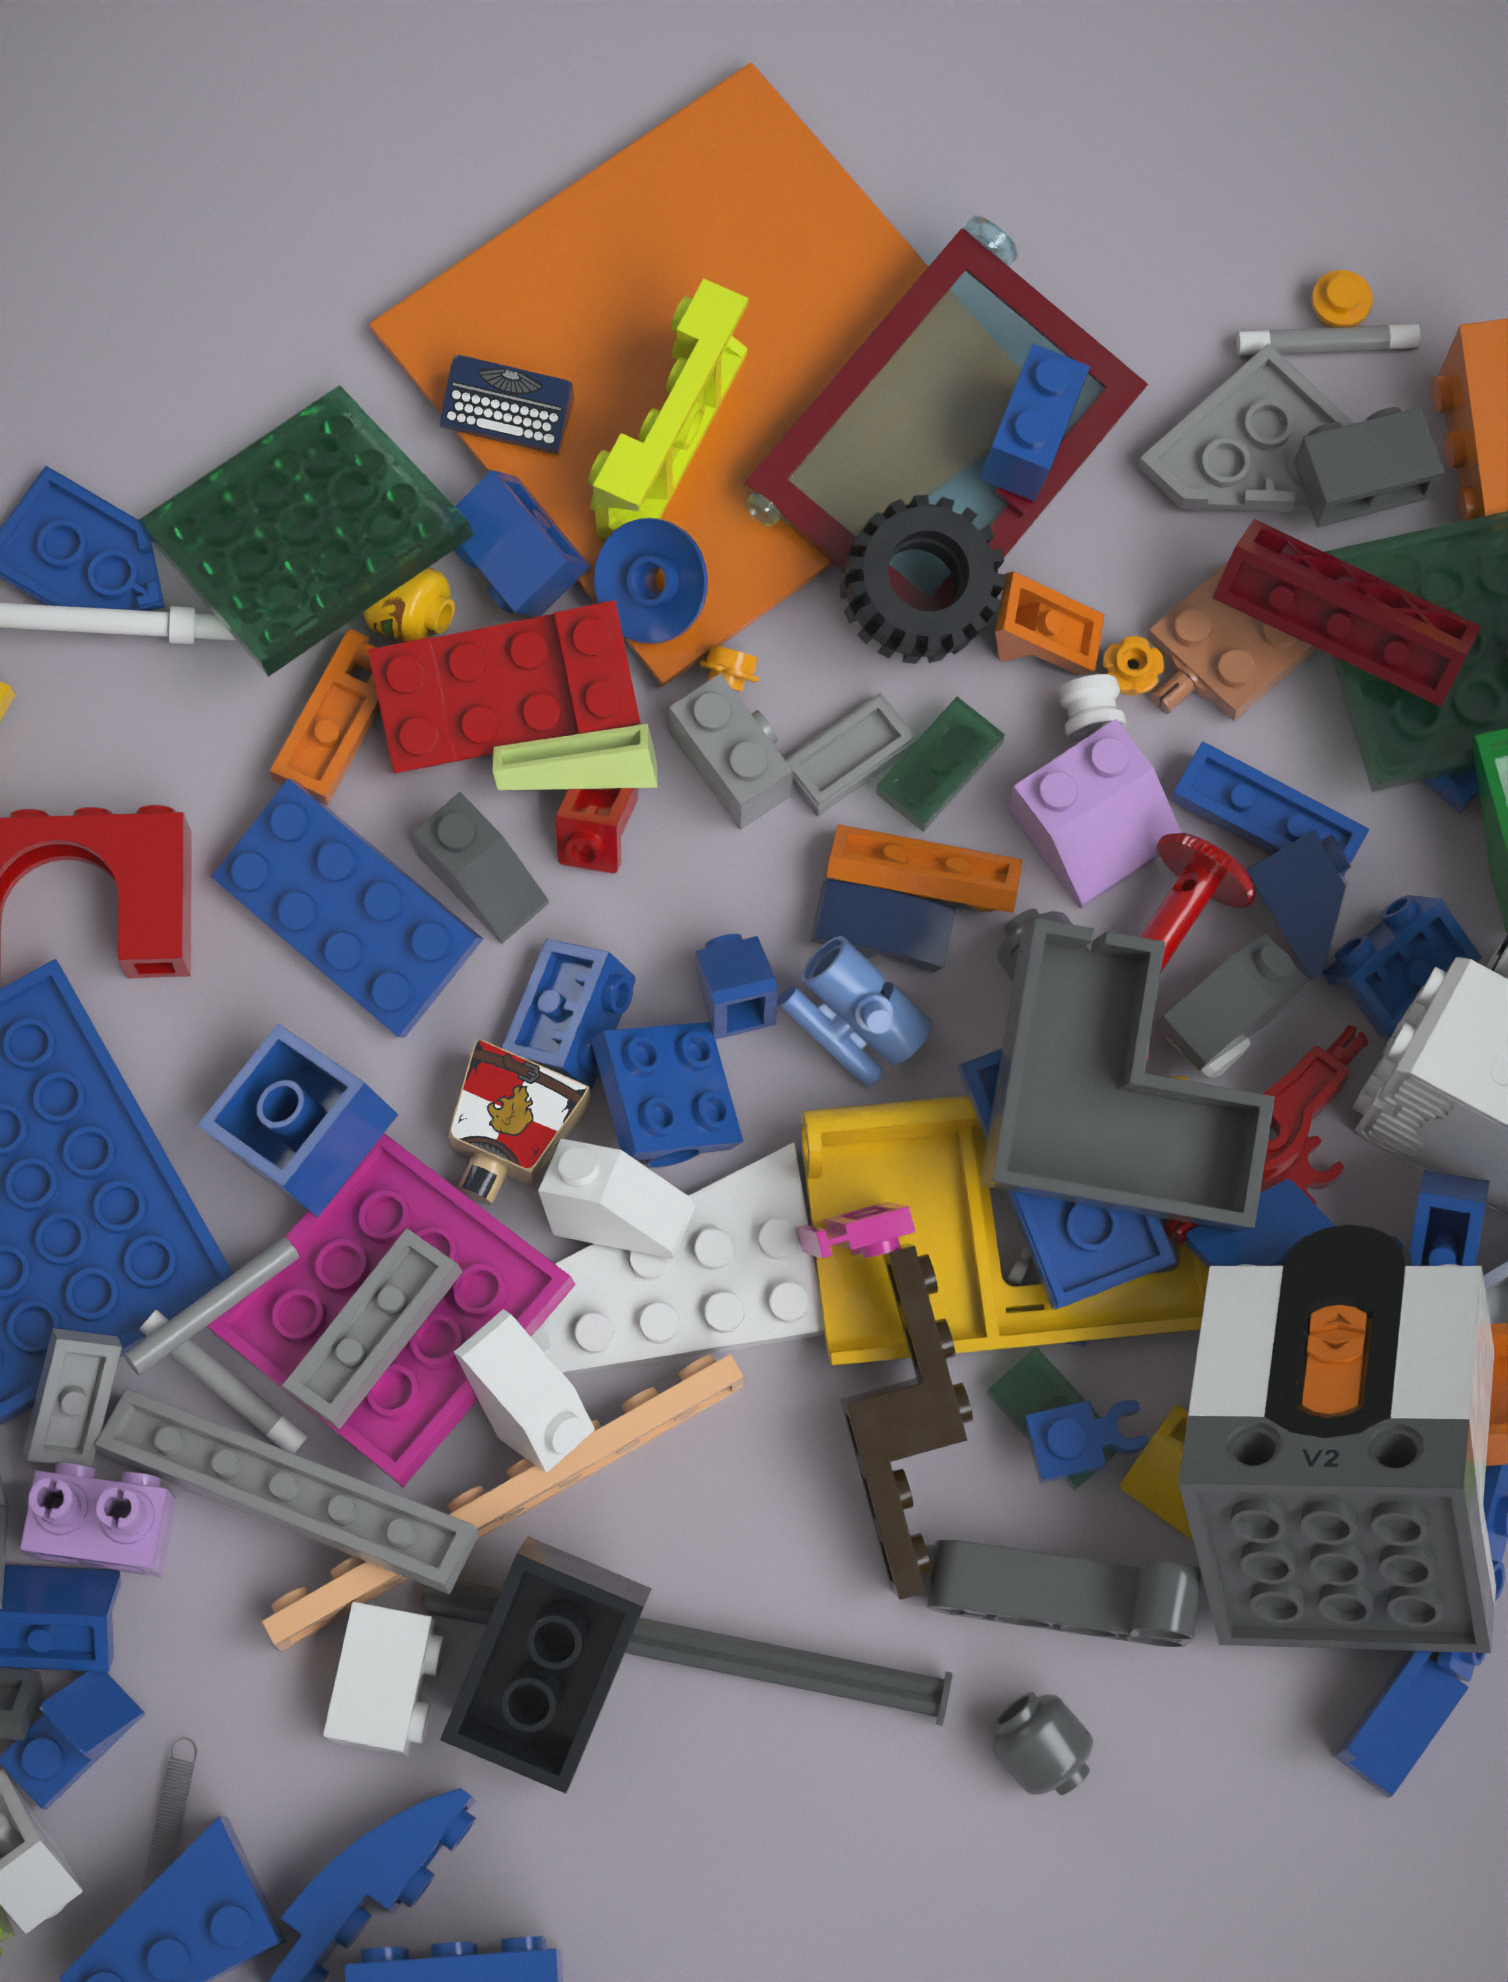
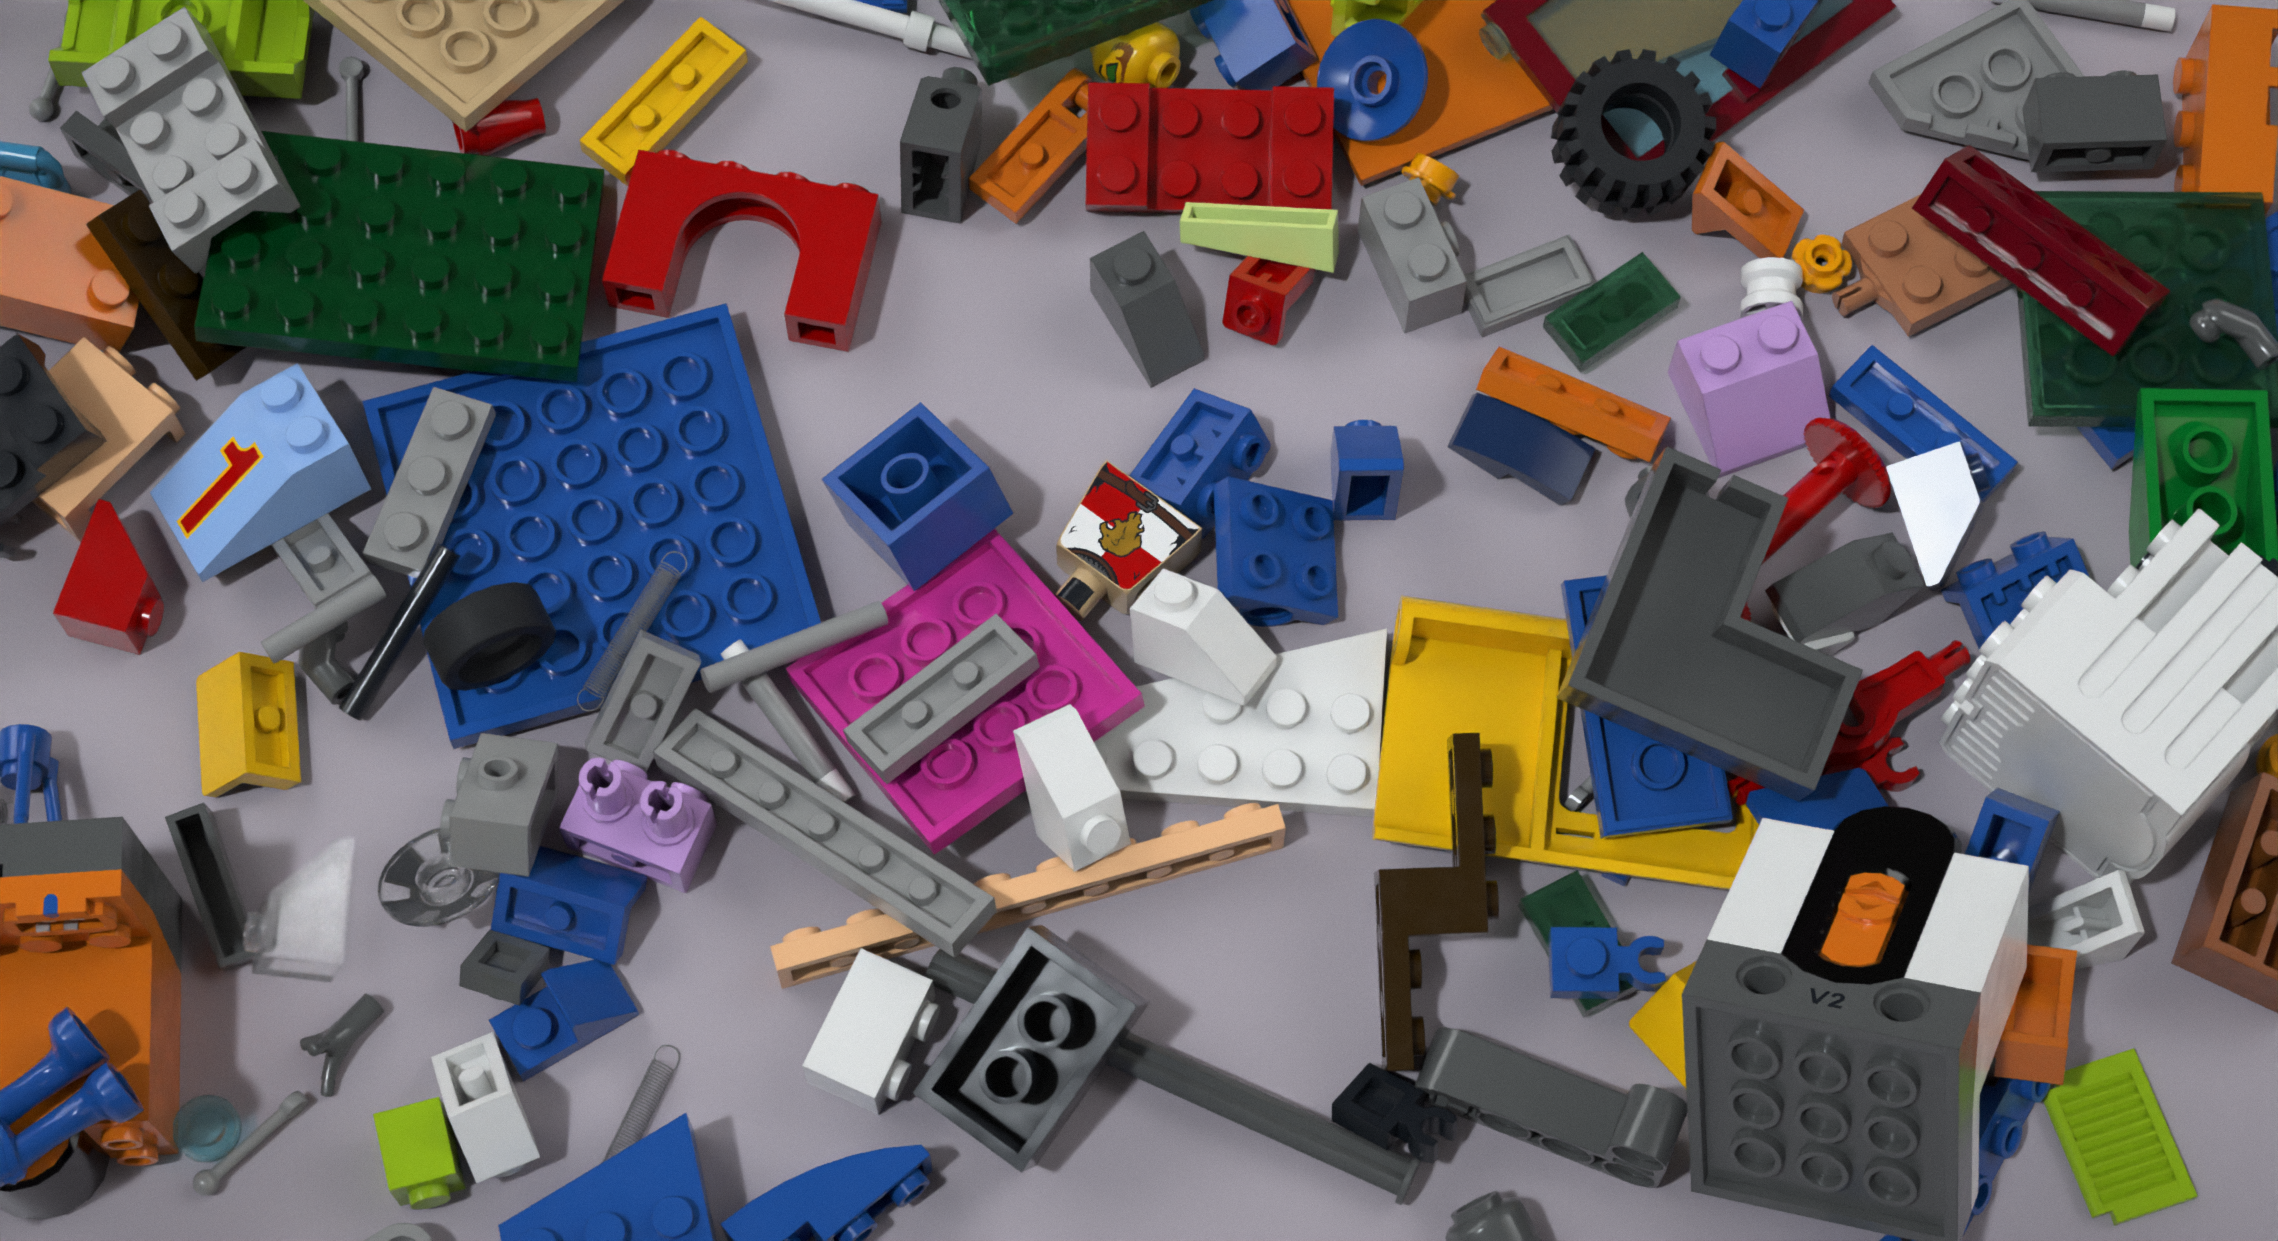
camera: 15 degrees right, 5 degrees down
(37, 1320) = (631, 627): none -> light grey piece
(233, 741) = (947, 123): none -> dark grey torso
(347, 908) = (1011, 319): blue plate -> none
(855, 1011) = (1474, 517): medium blue pin -> none
(862, 1231) = (1433, 715): dark pink plate -> none
(910, 1632) = (1391, 1109): none -> black plate

